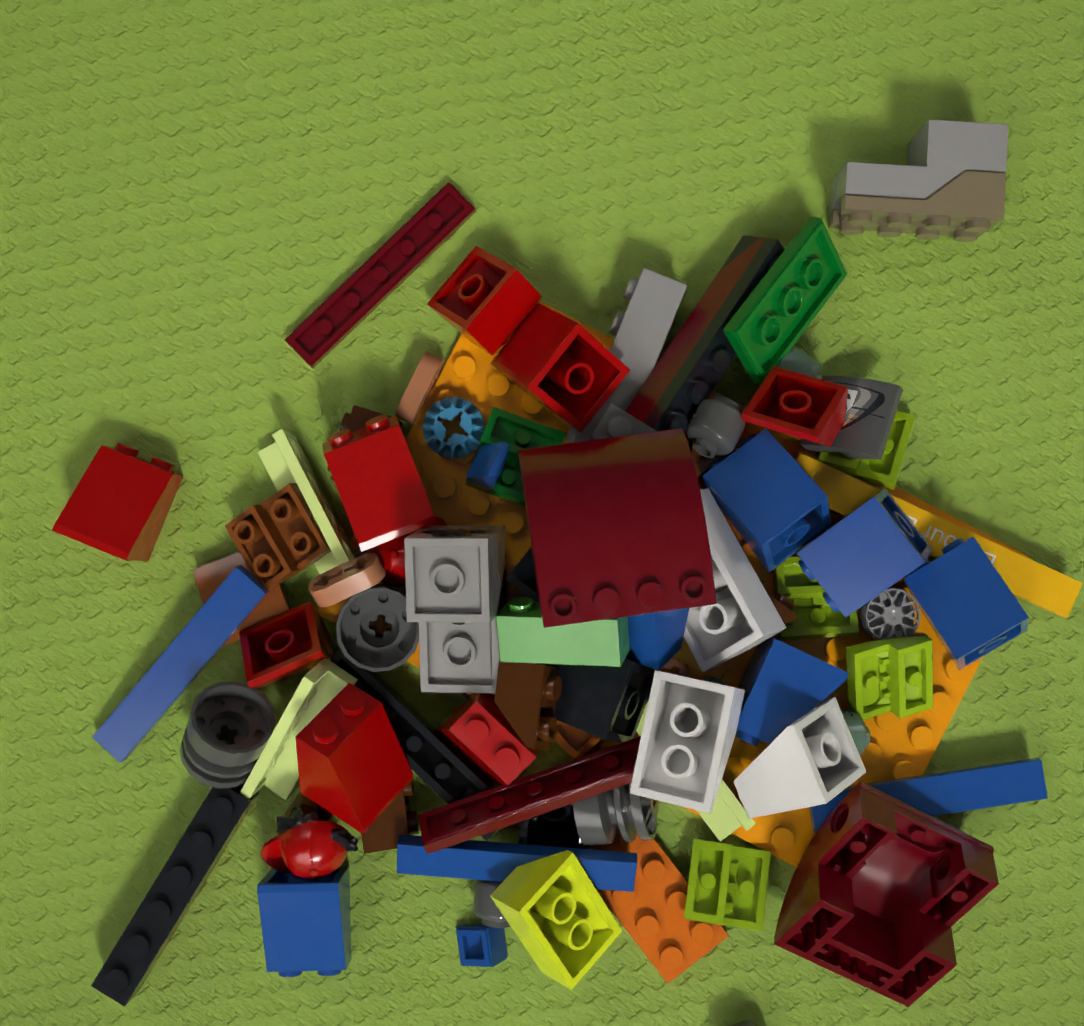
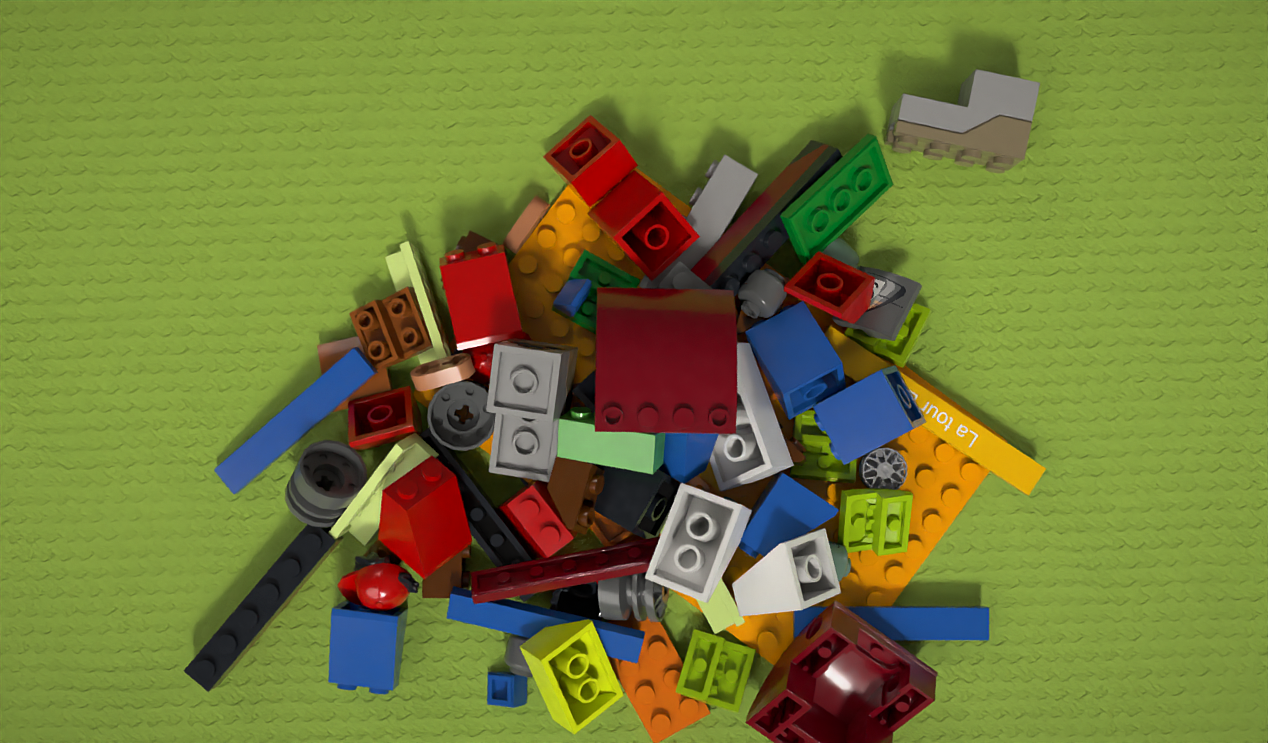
camera: 10 degrees right, 0 degrees up
(120, 503) = (267, 281): red slope -> none
(380, 275) = (508, 127): dark red tile -> none
(458, 445) = (564, 260): dark azure gear -> none
(966, 602) = (946, 469): blue slope -> none

